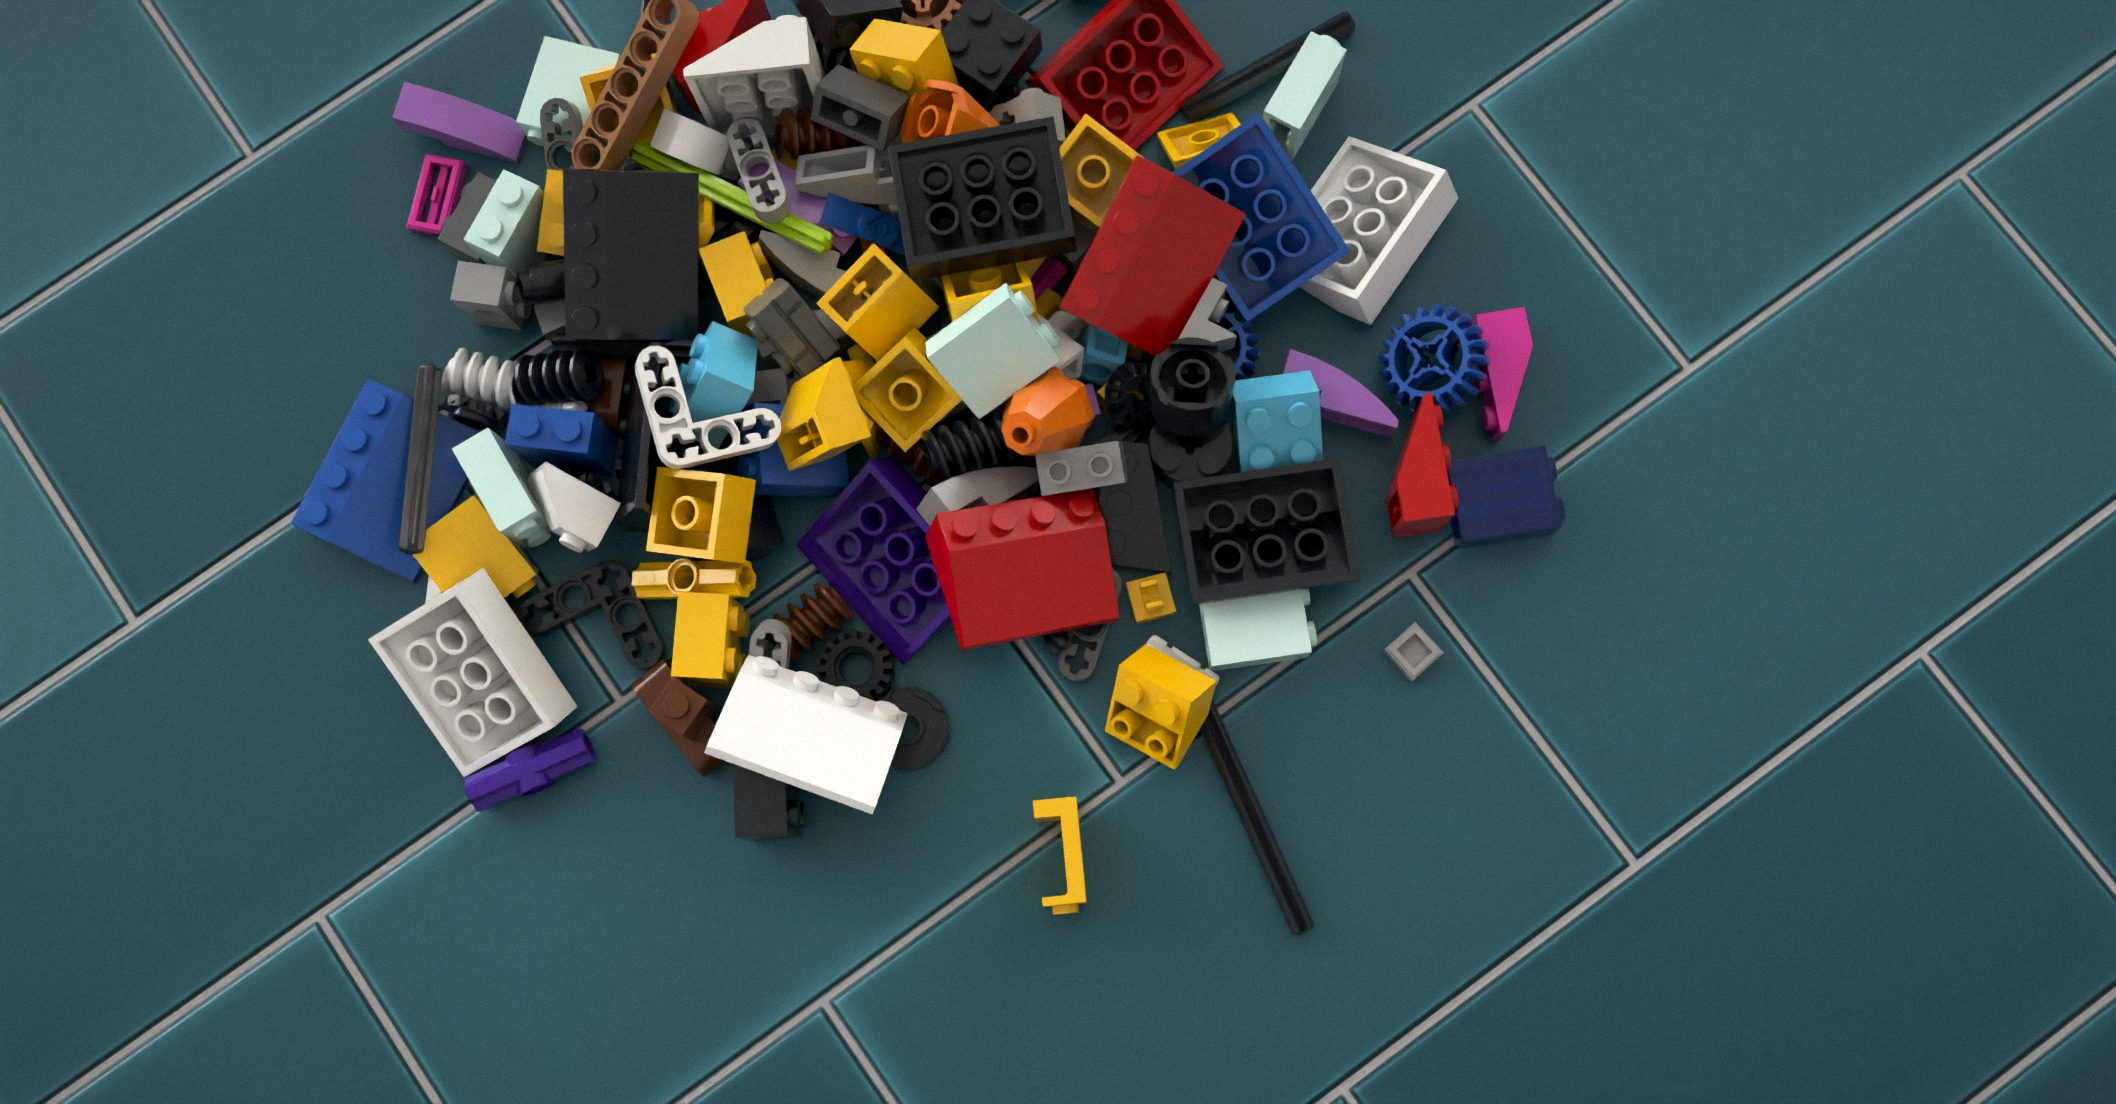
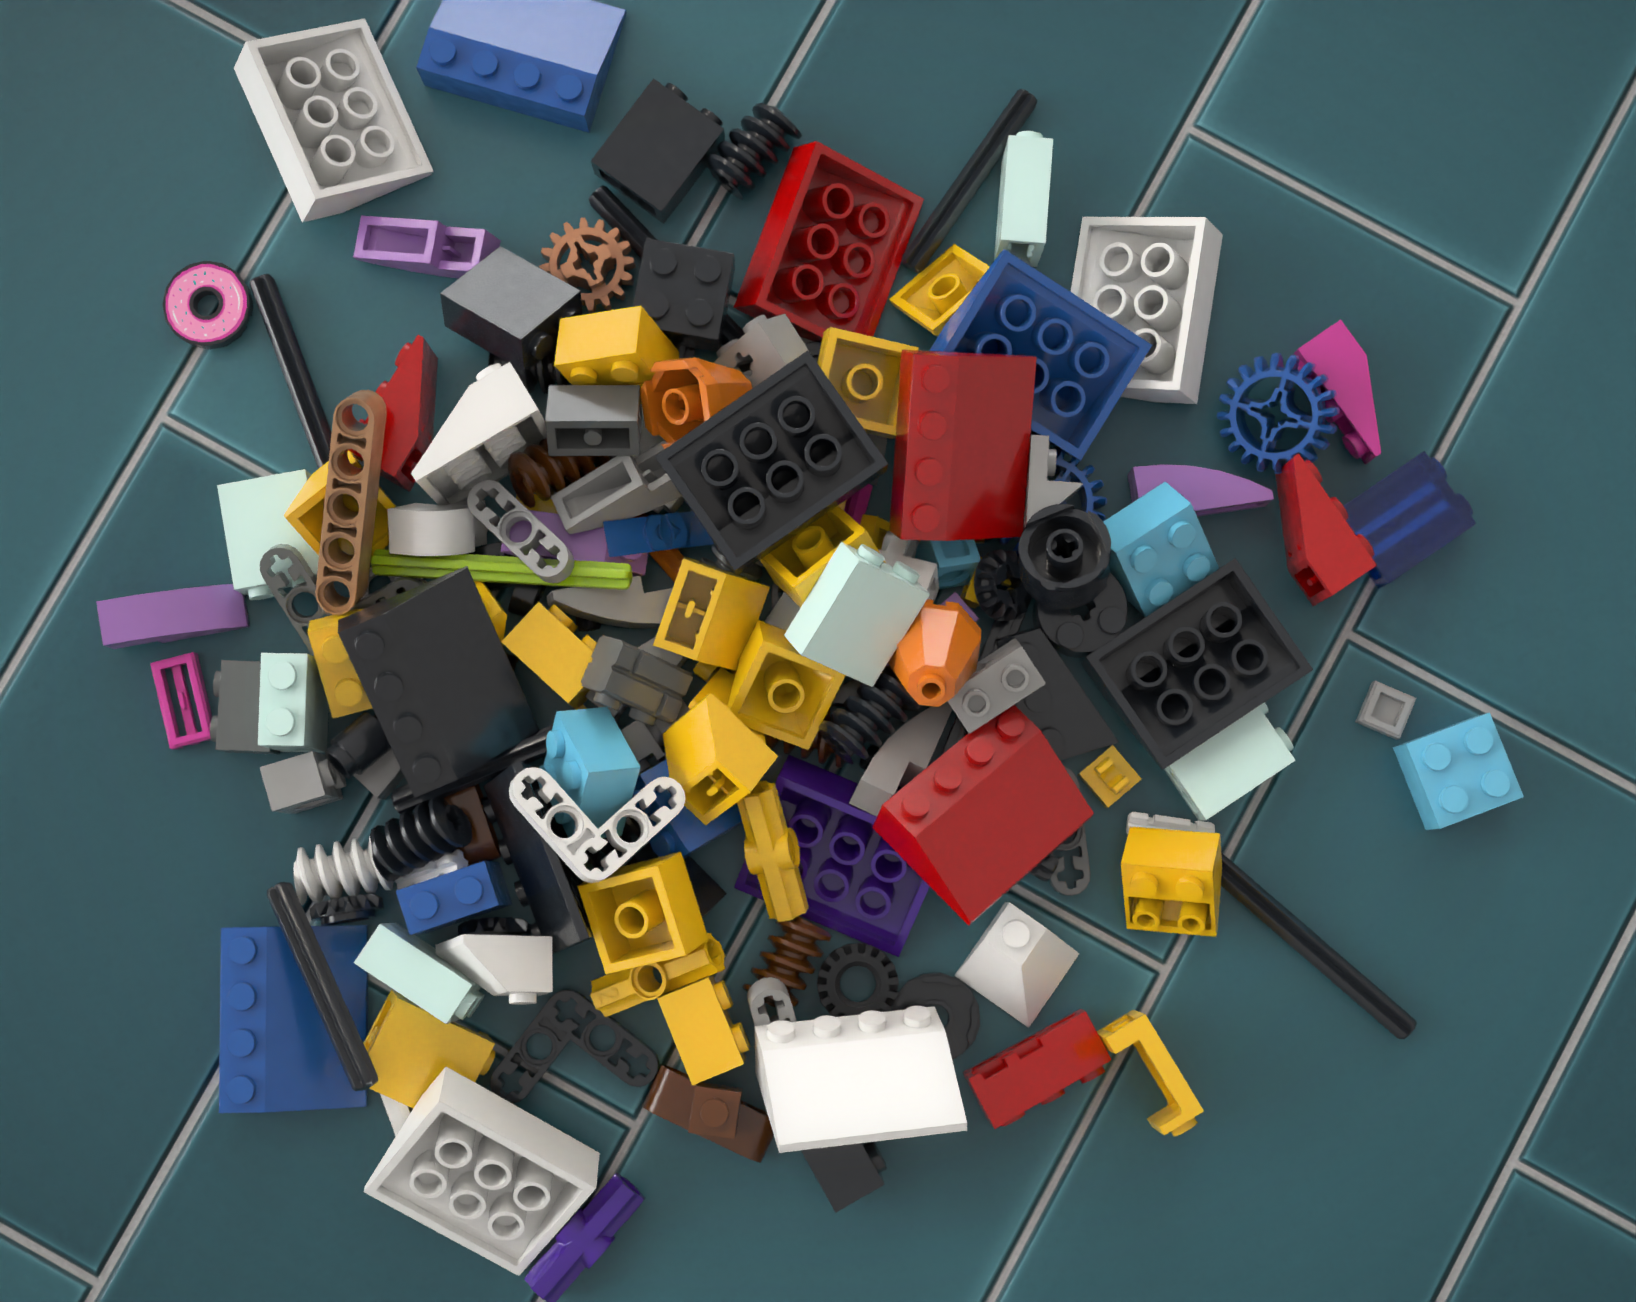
camera: 35 degrees left, 5 degrees up
(835, 521) = (772, 852): none -> yellow piece
(968, 808) = (1037, 1068): none -> red wedge
(997, 715) = (1017, 964): none -> white slope
(1449, 728) = (1458, 772): none -> medium azure brick

